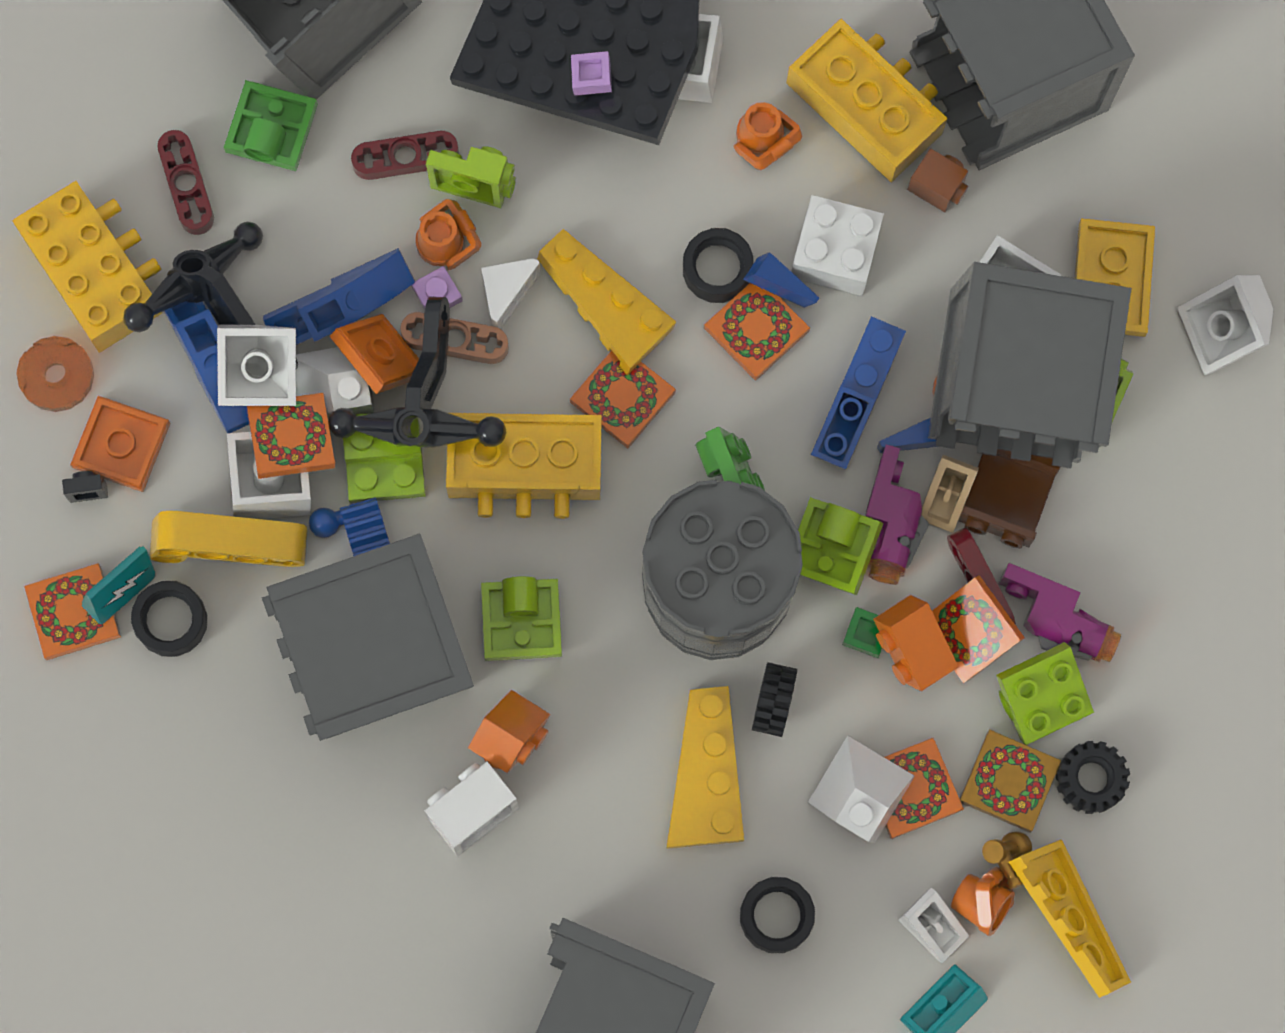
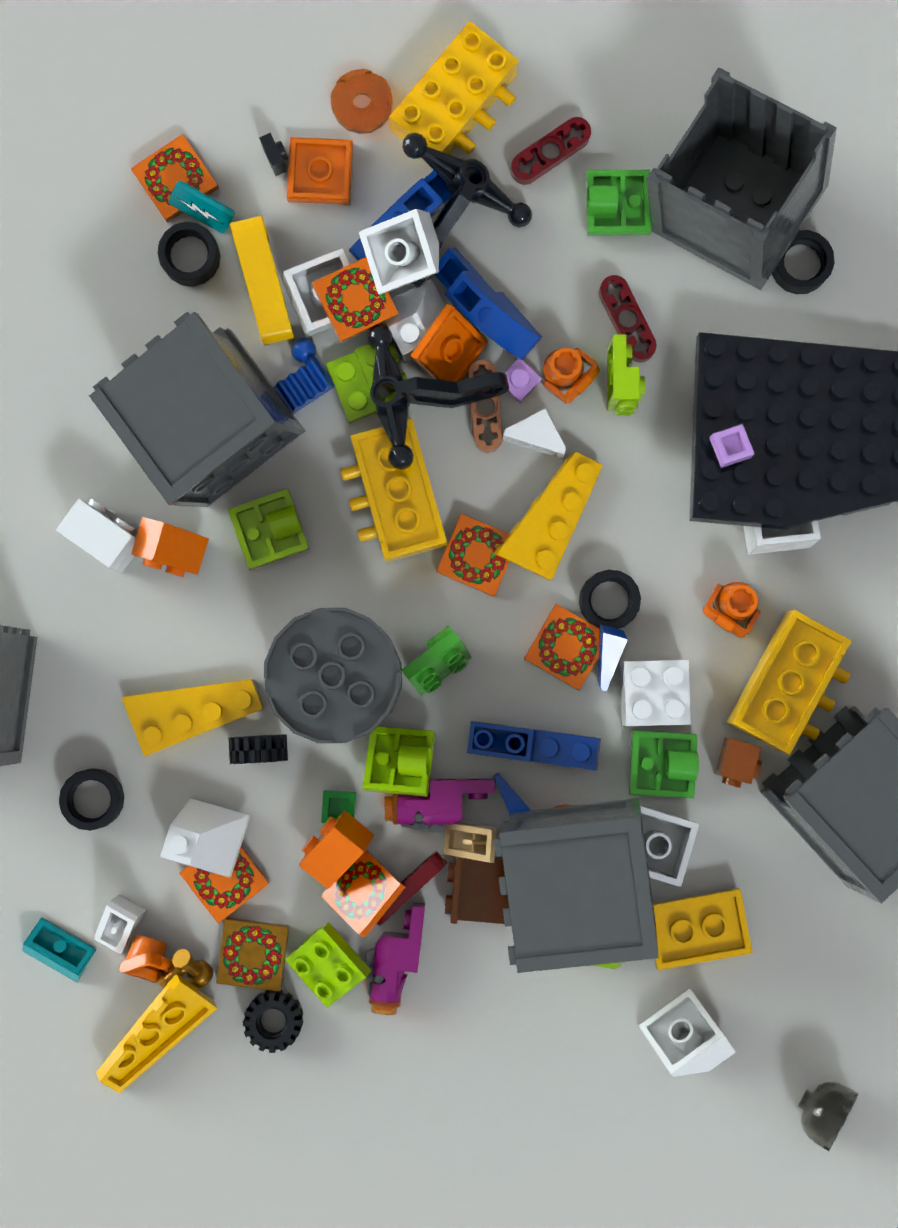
camera: 75 degrees right, 10 degrees up
(919, 260) = (663, 764): none -> bright green plate

